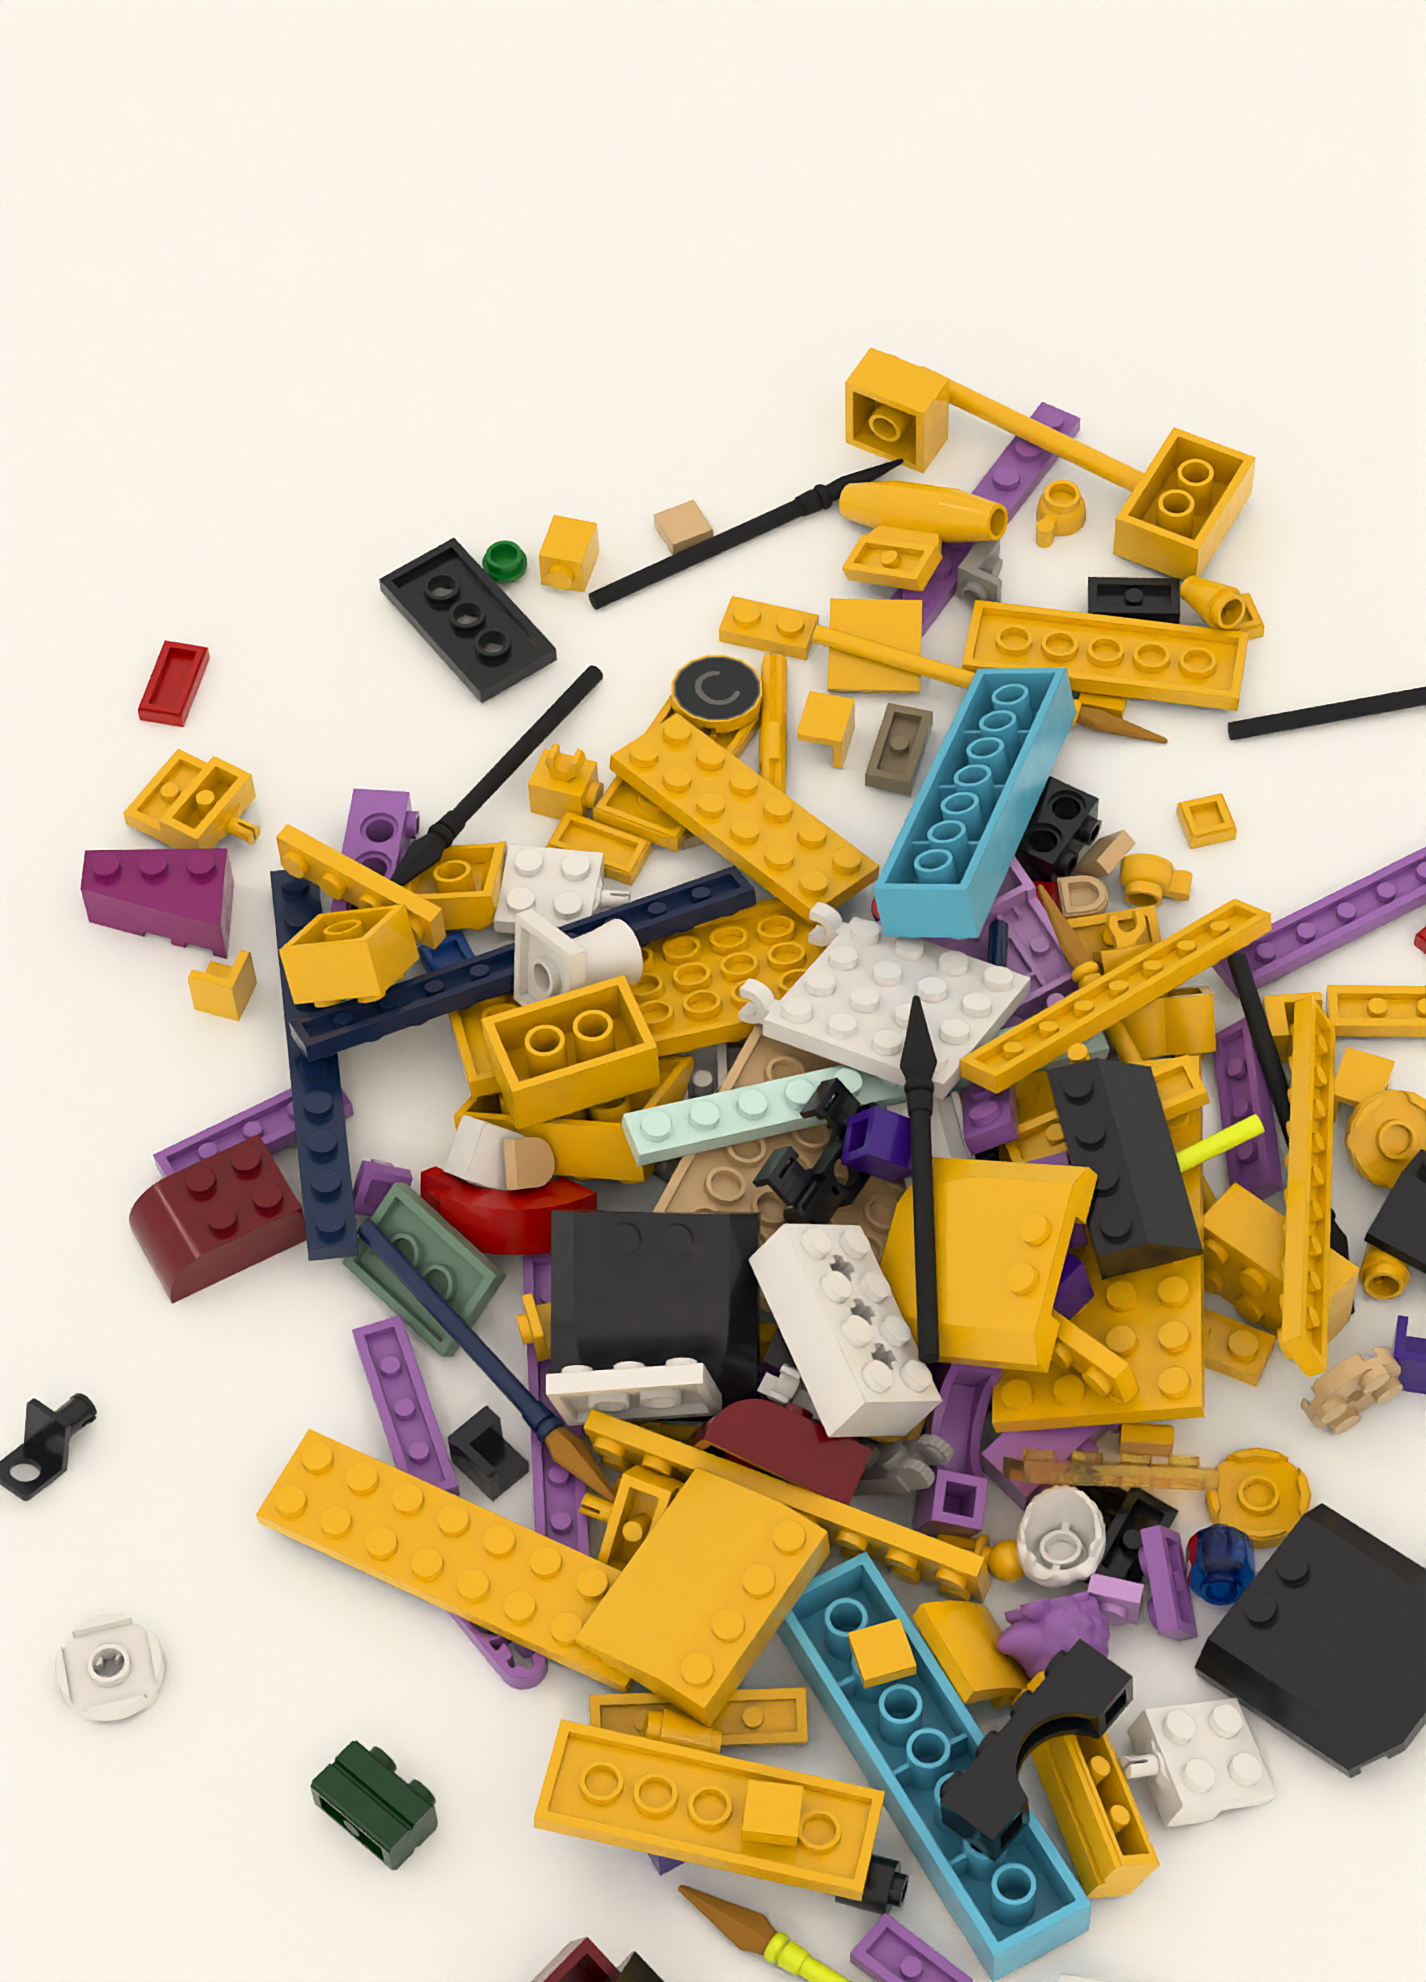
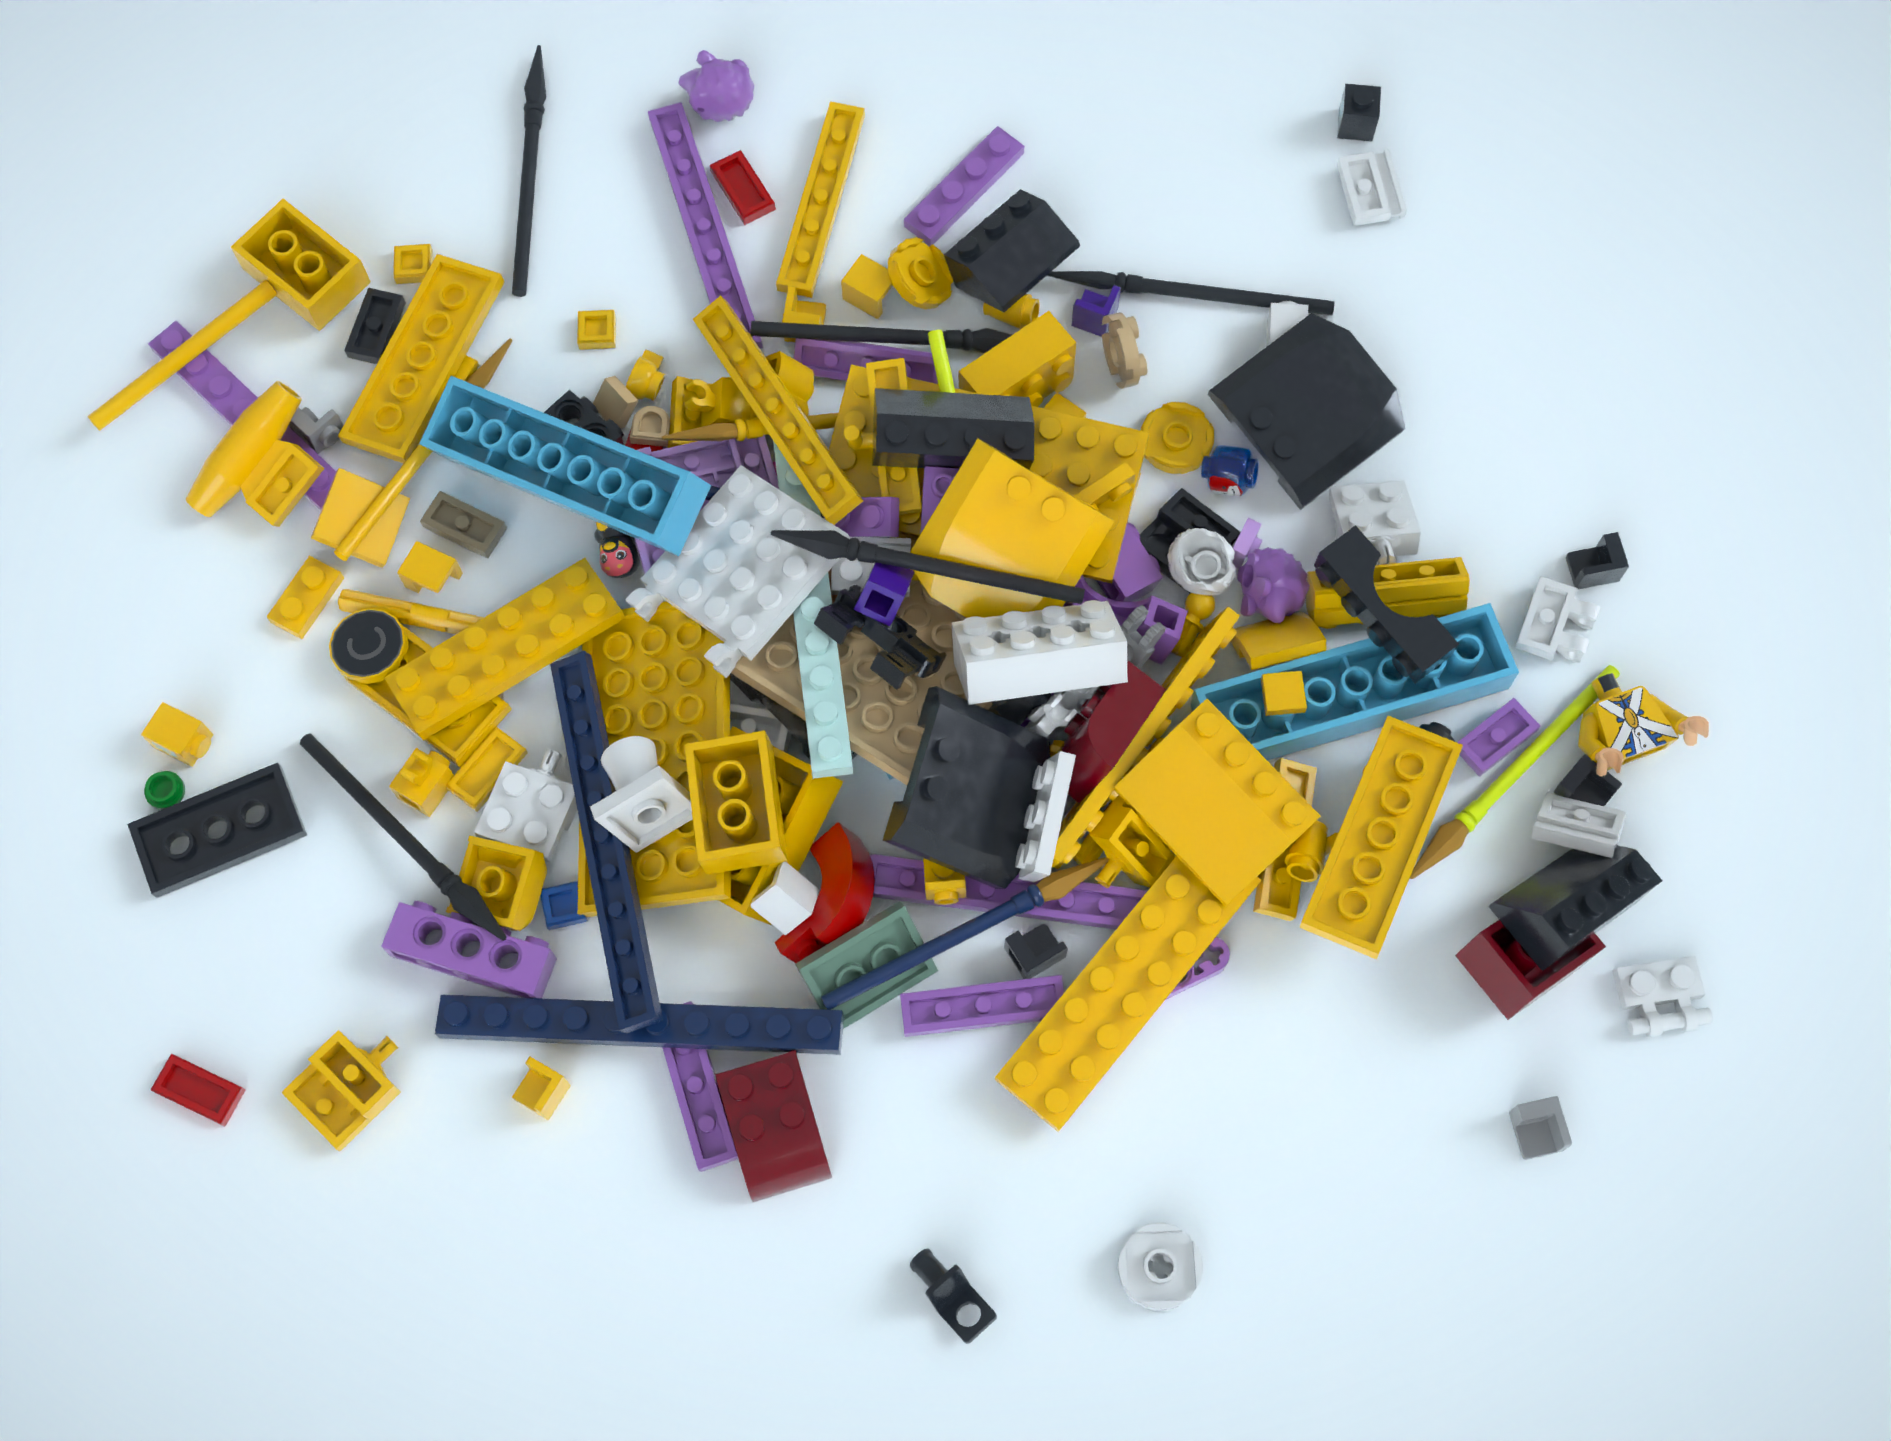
camera: 80 degrees left, 15 degrees up
(162, 893) = (434, 1125): magenta wedge -> none
(349, 955) = (572, 968): yellow brick -> none
(355, 883) = (487, 961): yellow plate -> none
(374, 1182) = (779, 987): medium lavender tile -> none
(375, 1803) = (1313, 1079): dark green brick -> none
(527, 1162) = (808, 865): tan tile -> none
(682, 526) = (176, 642): tan tile -> none
(772, 1813) = (1400, 790): yellow tile -> none
(803, 505) = (186, 541): black piece -> none
(896, 409) = (127, 445): yellow brick -> none
(1059, 512) = (265, 359): yellow piece -> none
(1090, 1469) = (1160, 517): clear yellow plate -> none
(1171, 1601) = (1258, 509): medium lavender plate -> none
(1215, 602) = (402, 268): yellow cone -> none
(1308, 1190) = (987, 325): yellow plate -> none

